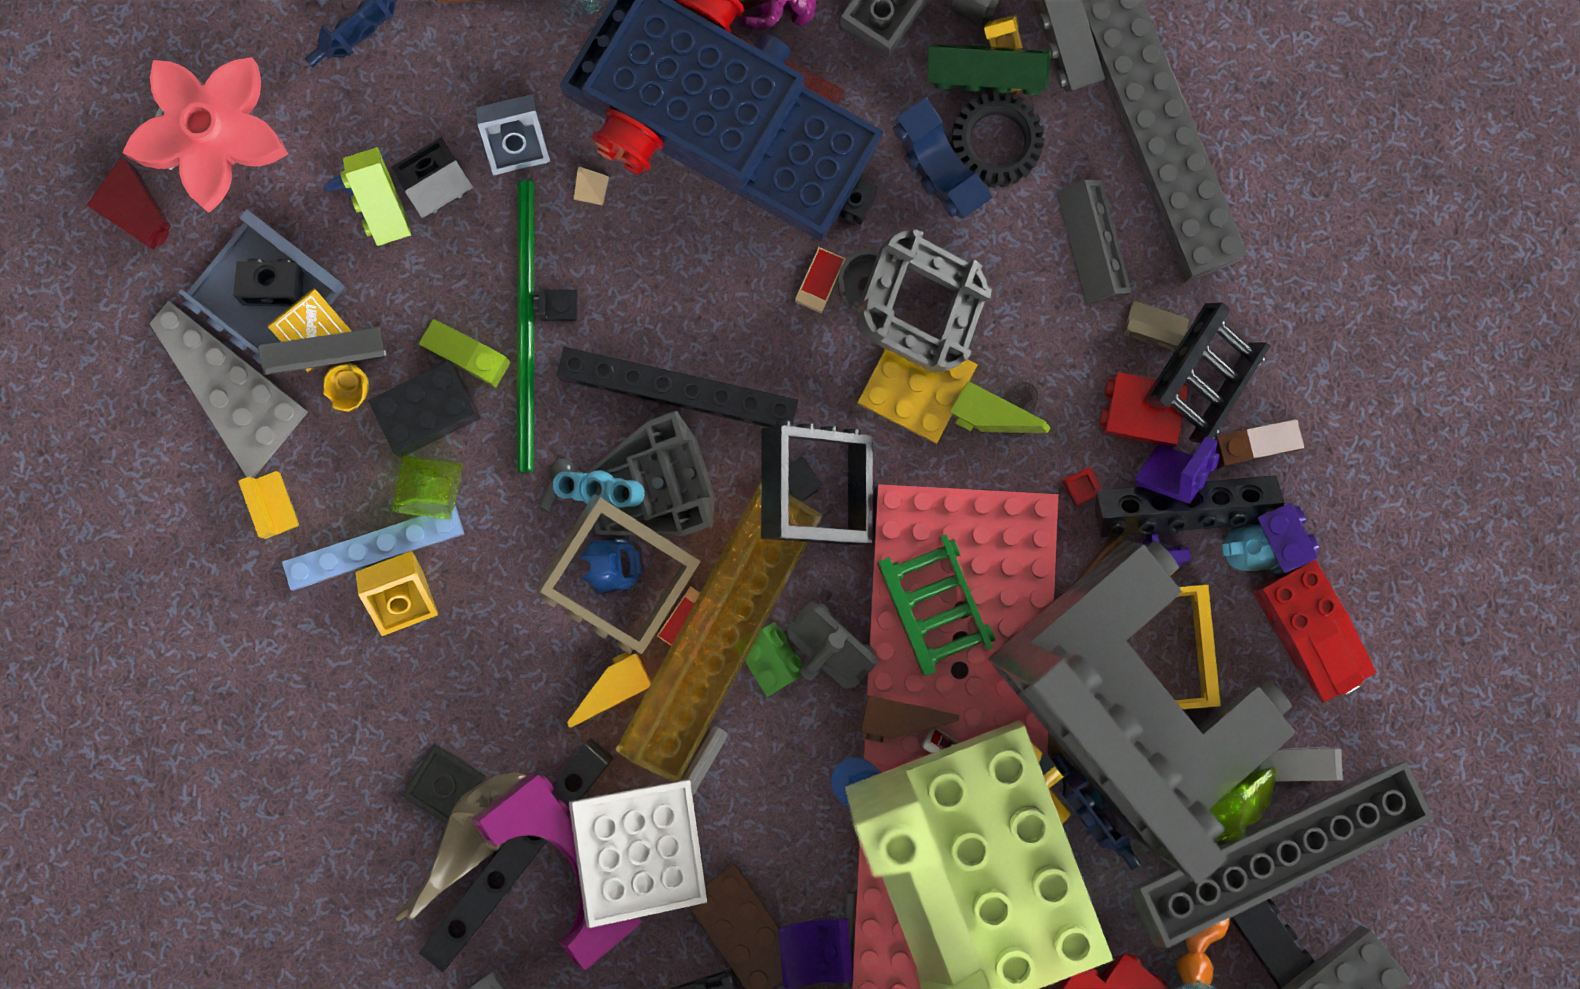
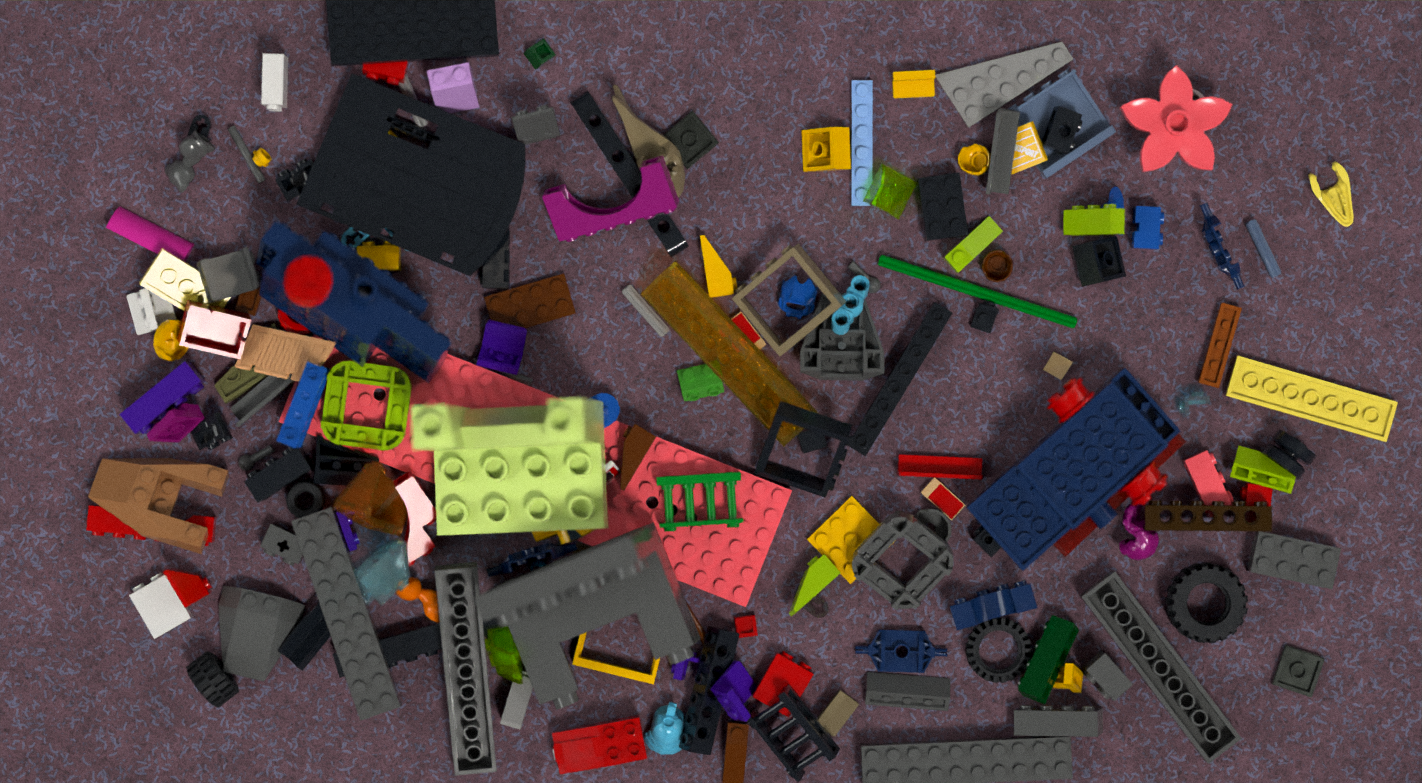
camera: 115 degrees right, 5 degrees up
(130, 205) = (1145, 53): dark red slope -> none
(365, 128) = (1148, 227): none -> blue brick
(481, 308) = (997, 265): none -> reddish brown hair
(512, 134) = (1110, 325): sand blue slope -> none
(637, 852) = (605, 254): white plate -> none
(779, 297) = (940, 466): none -> red panel
(830, 647) = (695, 422): dark grey shield -> none
(1043, 291) = (884, 646): none -> dark blue plate
(1288, 537) = (667, 746): dark purple bracket -> none

